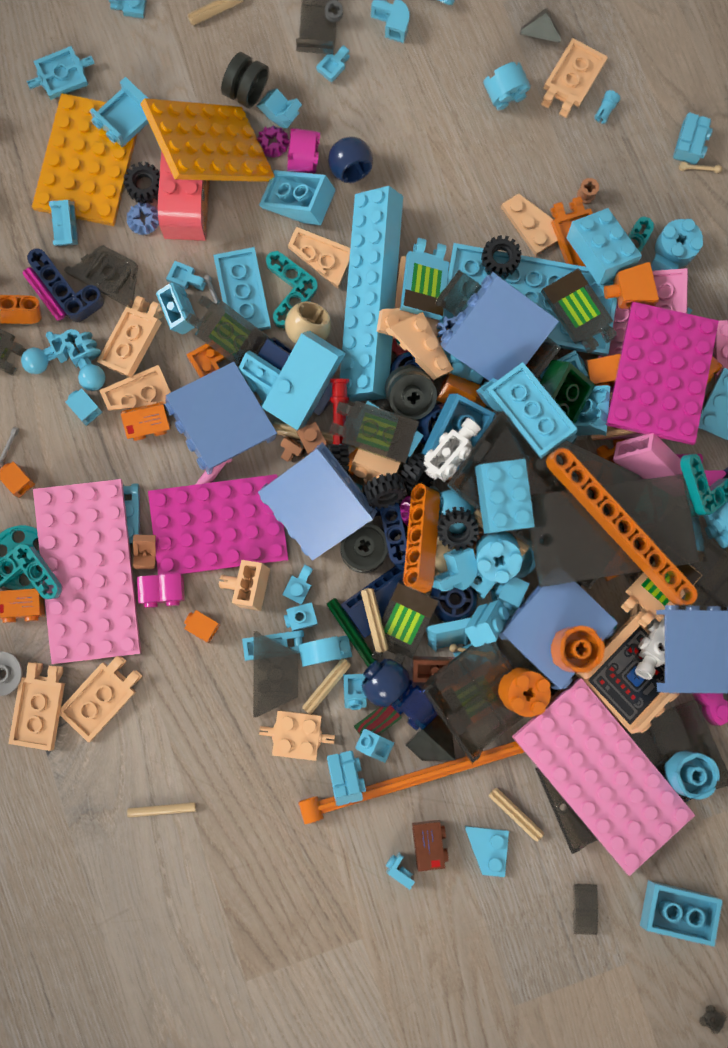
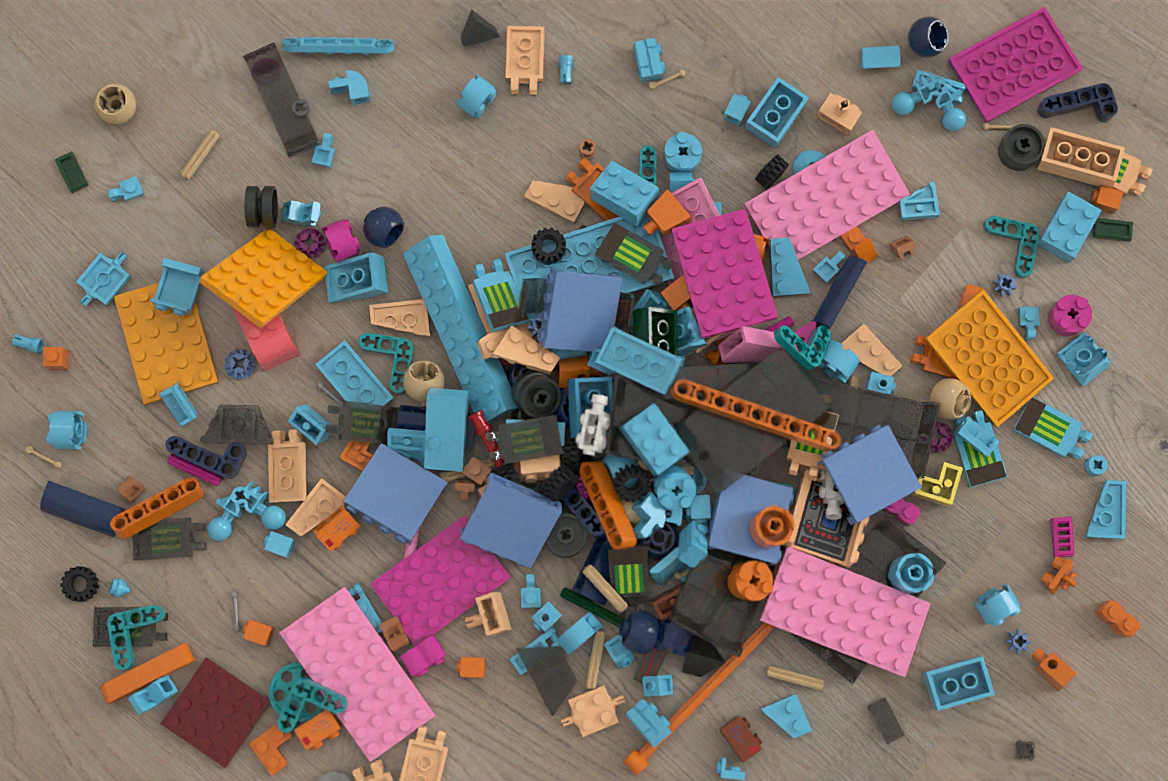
camera: 25 degrees left, 0 degrees up
(140, 172) = (217, 325): black tyre -> none
(184, 275) = (299, 394): medium azure plate -> none

